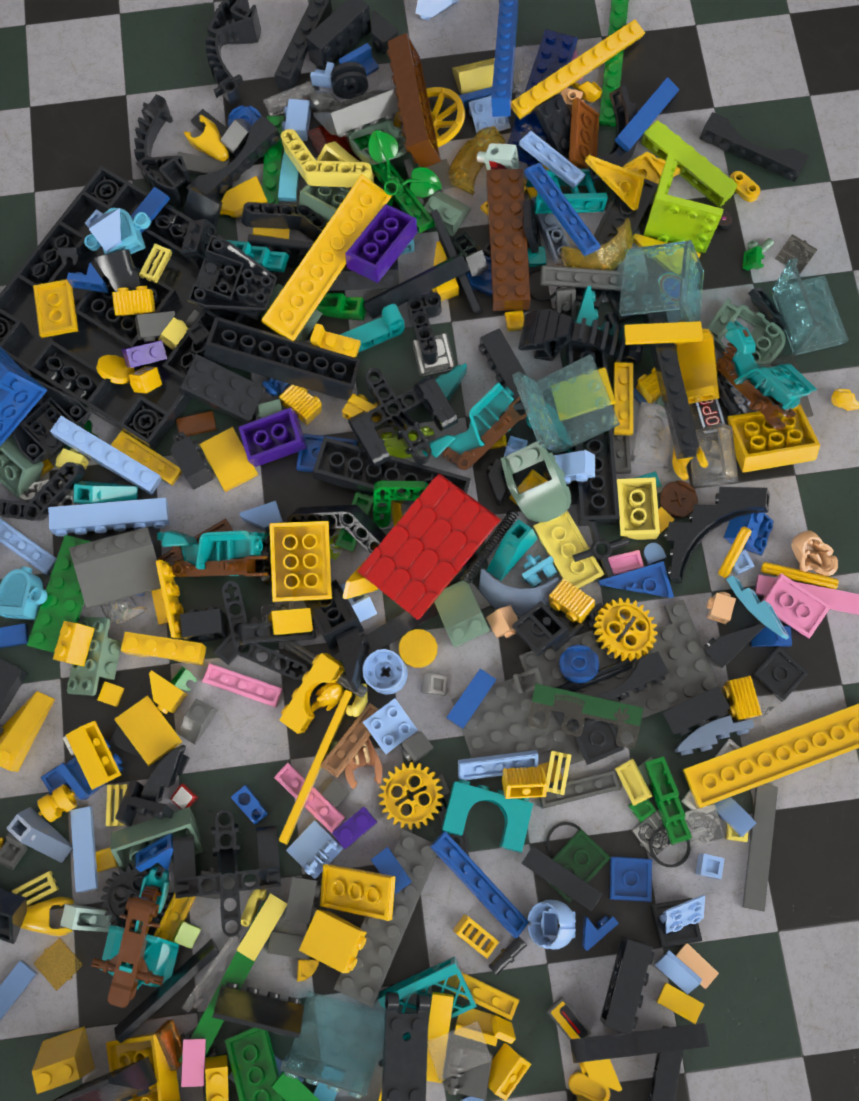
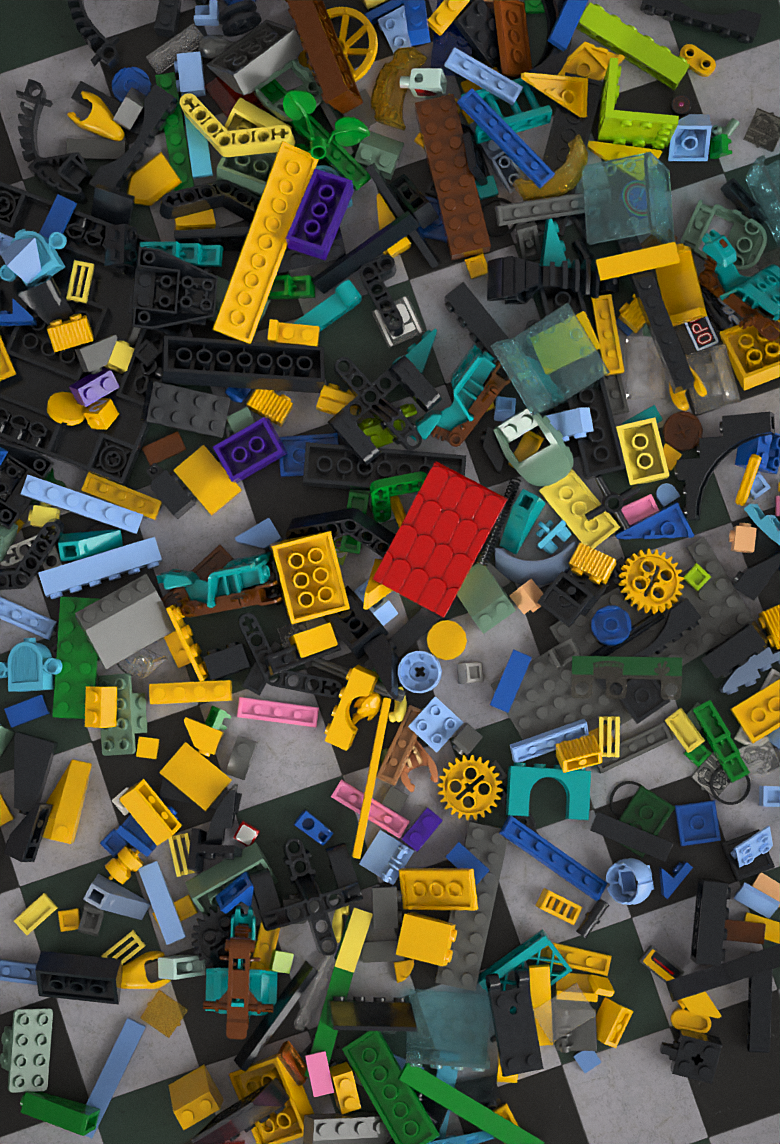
camera: 10 degrees left, 10 degrees up
(661, 1003) = (745, 931): none -> reddish brown tile
(670, 635) = (696, 577): none -> lime tile
(727, 247) = (691, 139): none -> light blue slope

